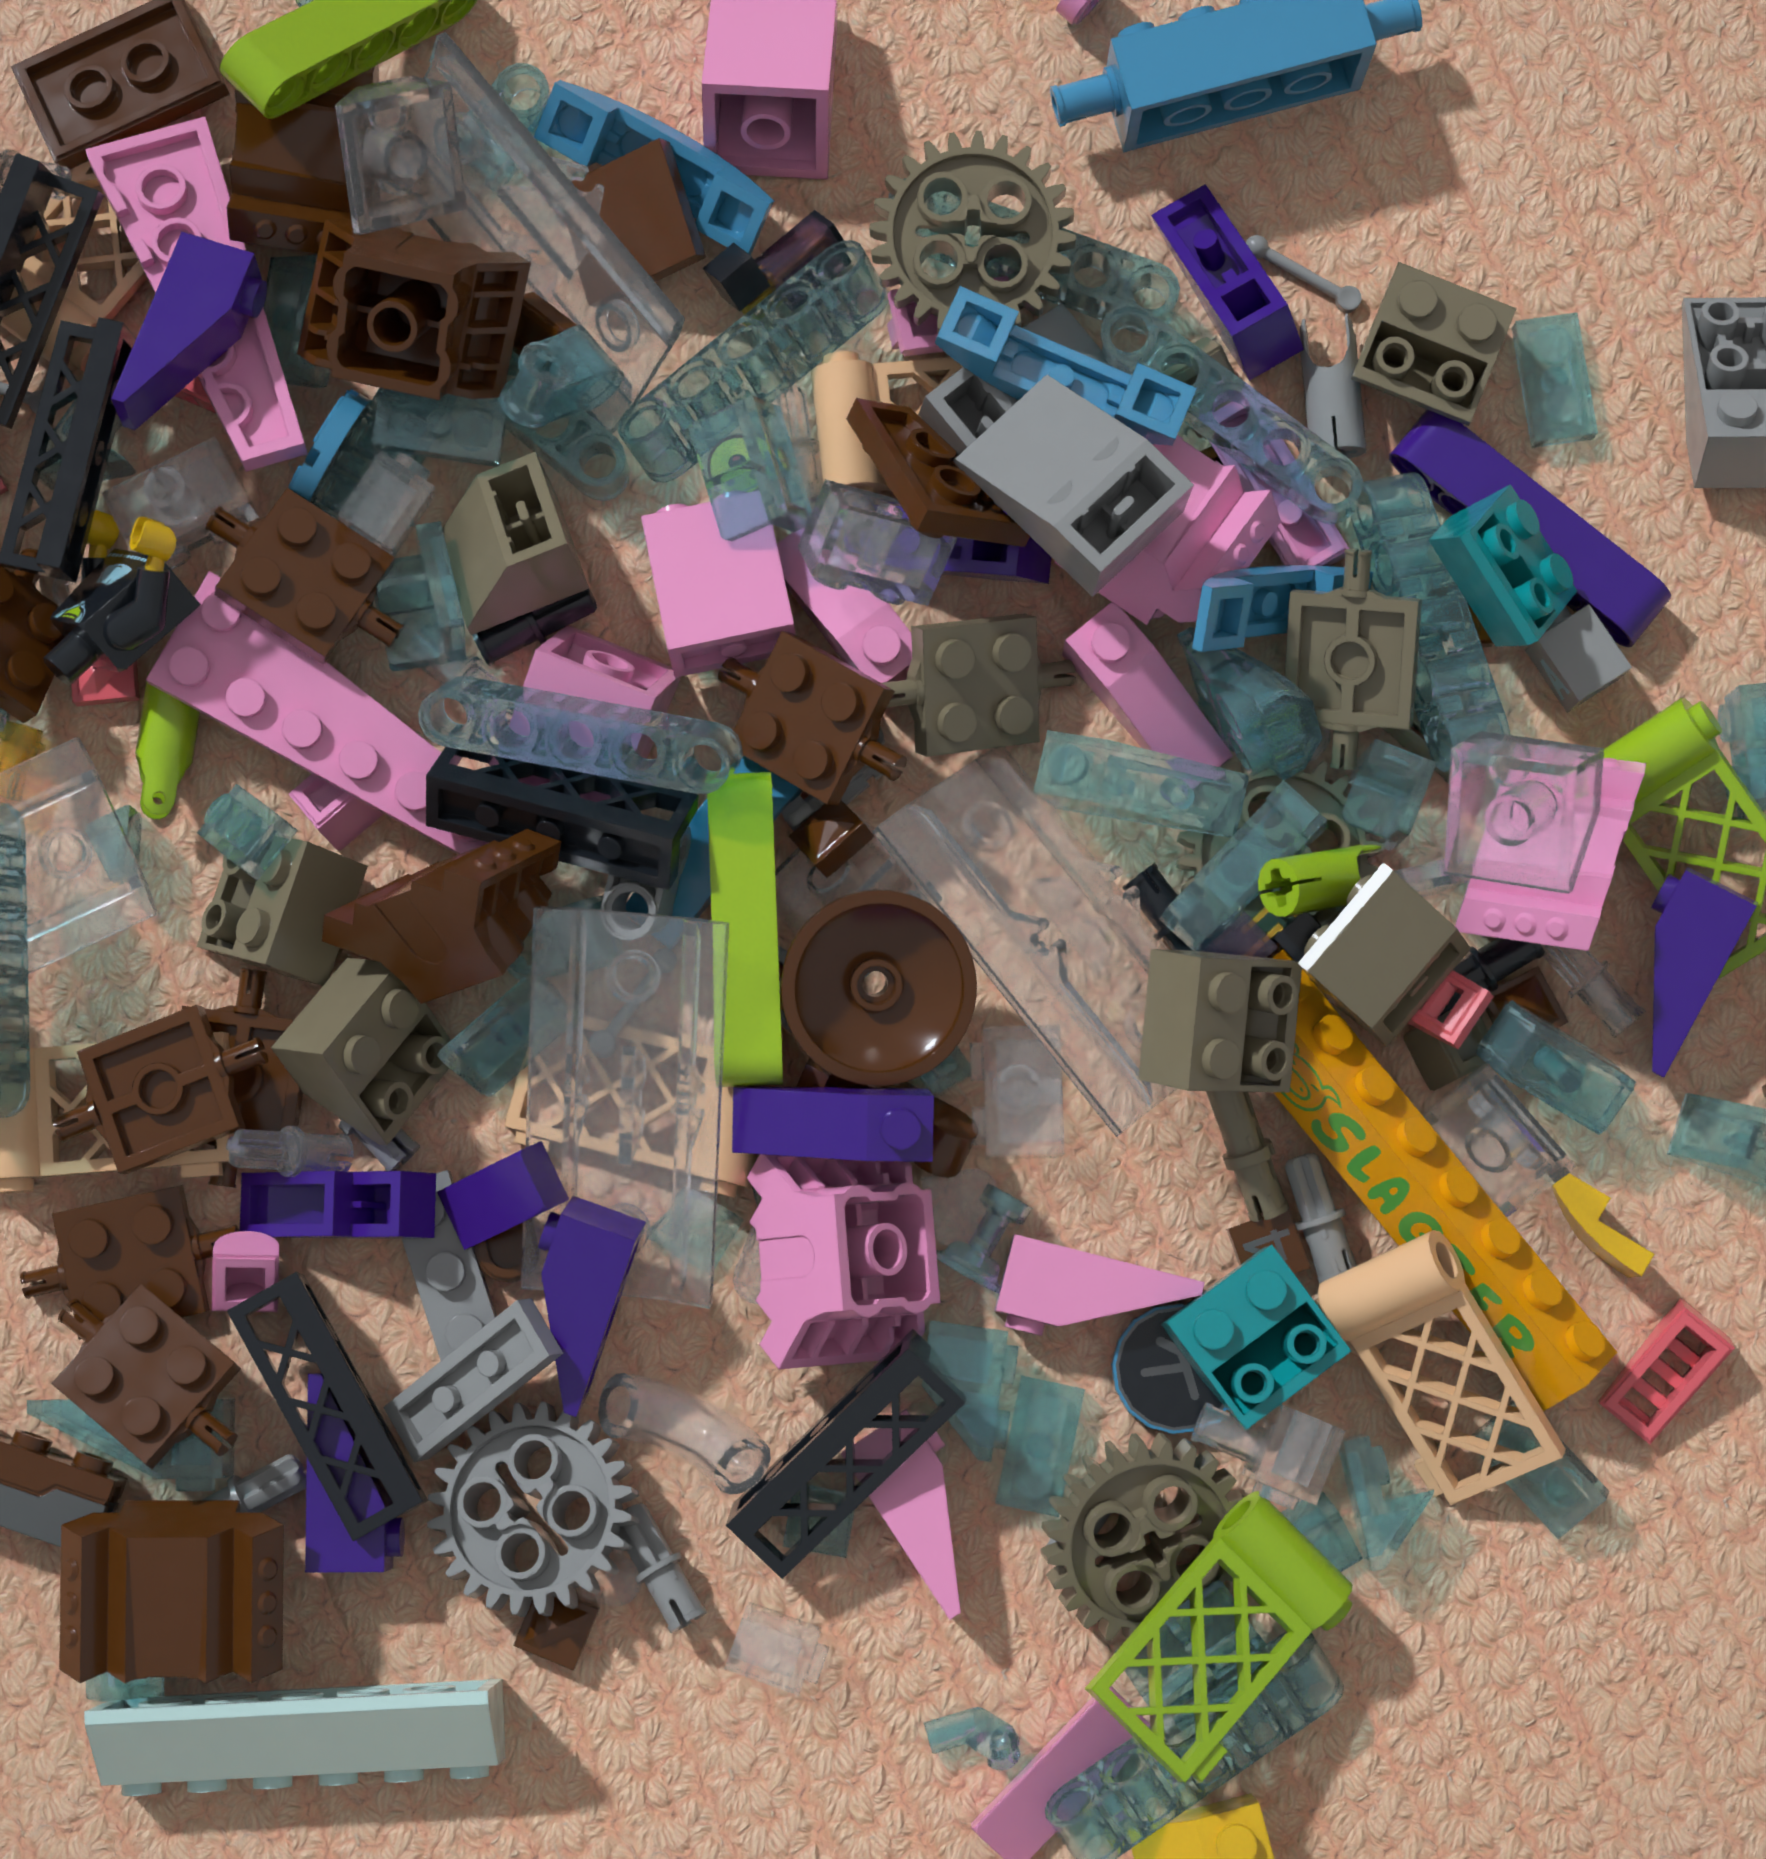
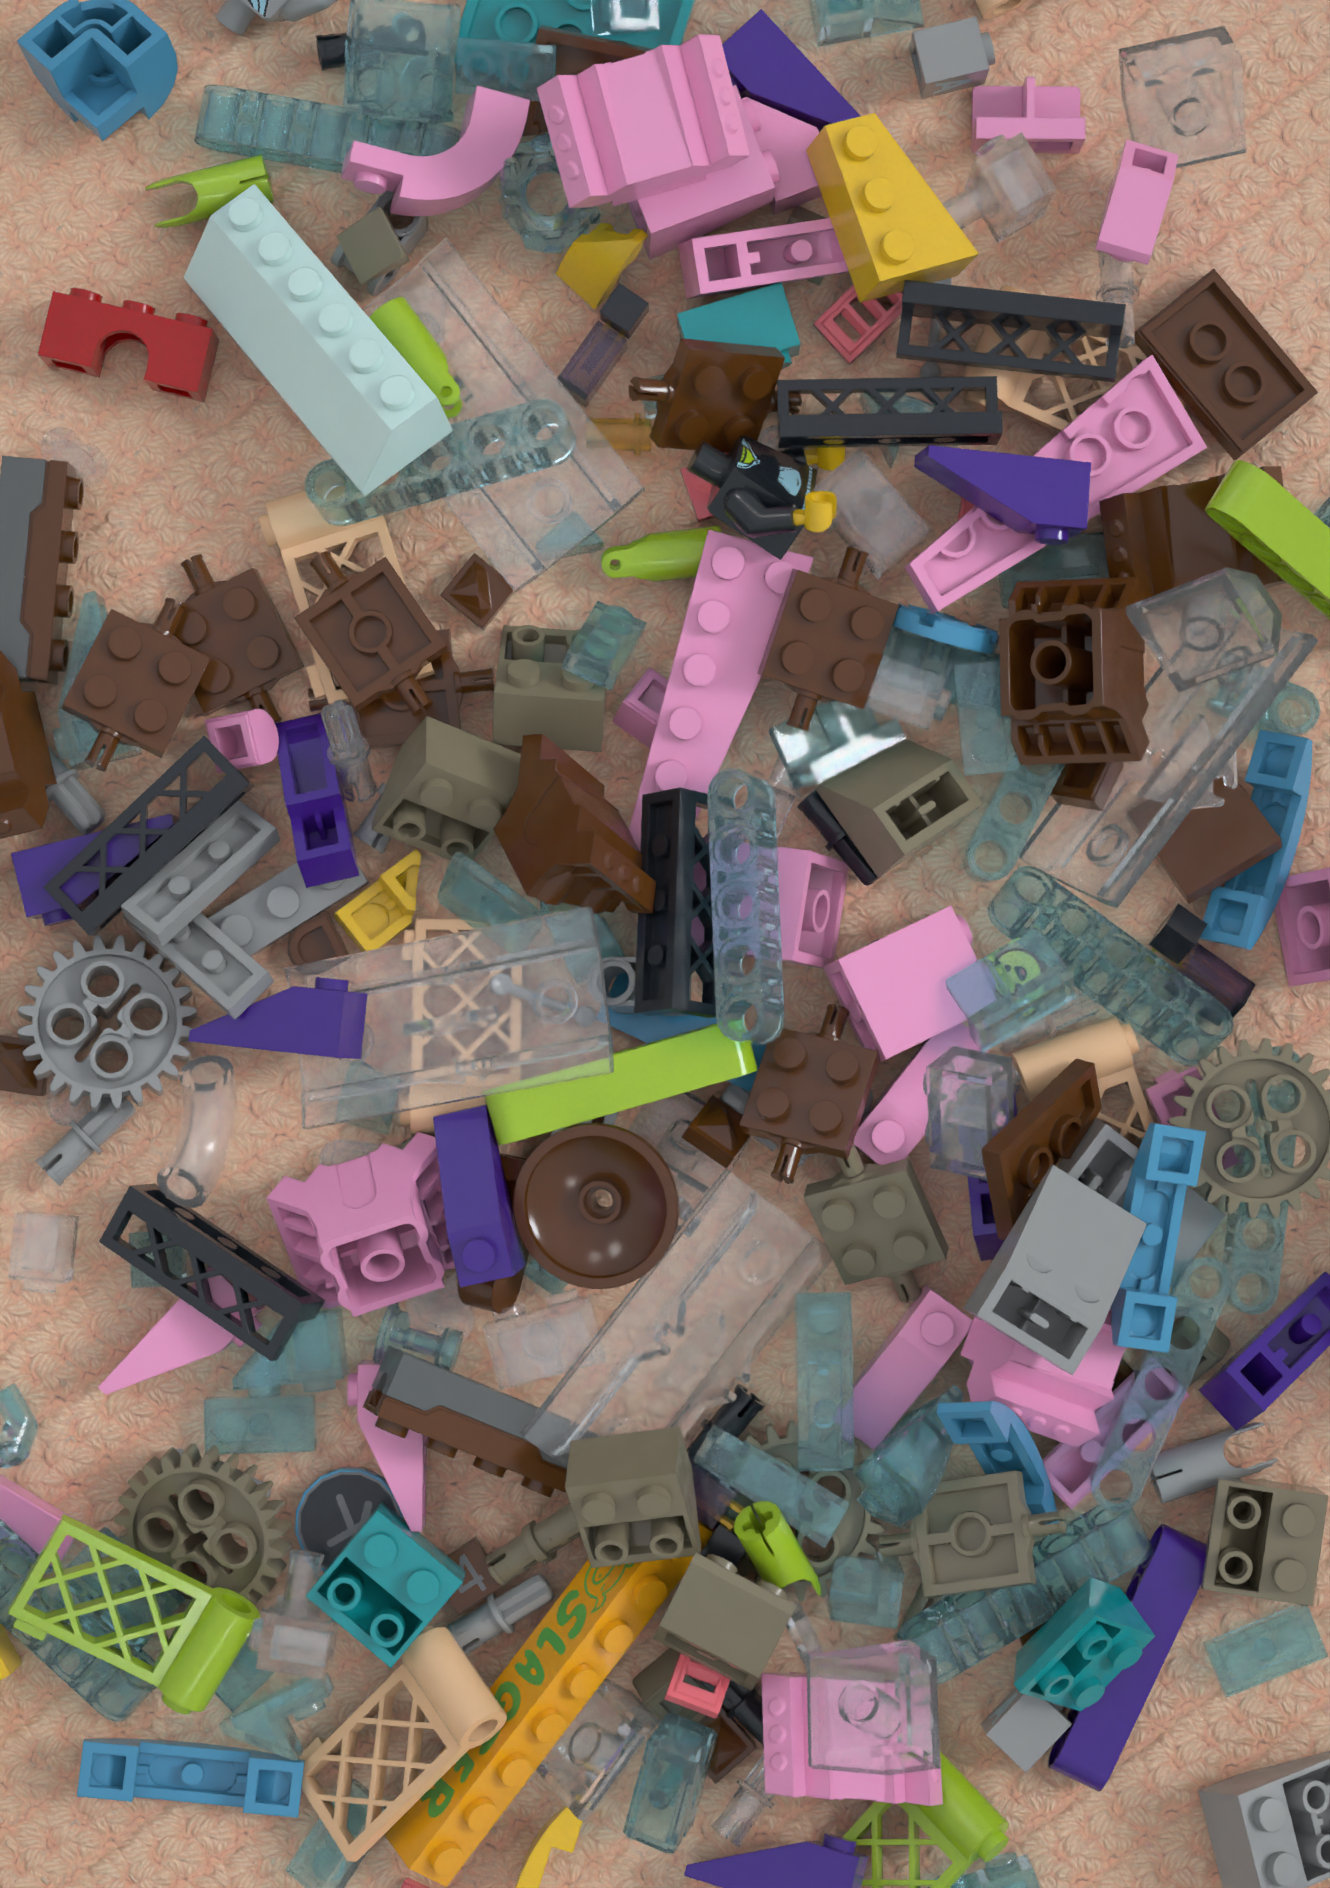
camera: 75 degrees right, 5 degrees up
(150, 964) = (478, 592): none -> reddish brown tile
(386, 1357) = (200, 873): none -> light grey plate
(467, 1140) = (384, 907): none -> yellow slope
(503, 1195) = (353, 936): dark purple slope -> none
(560, 379) = (1047, 809): clear light blue piece -> none
(1083, 1199) = (461, 1416): none -> piece
(1346, 298) = (1293, 1454): light grey hinge -> none
(1424, 1621) = (190, 1773): none -> dark azure slope

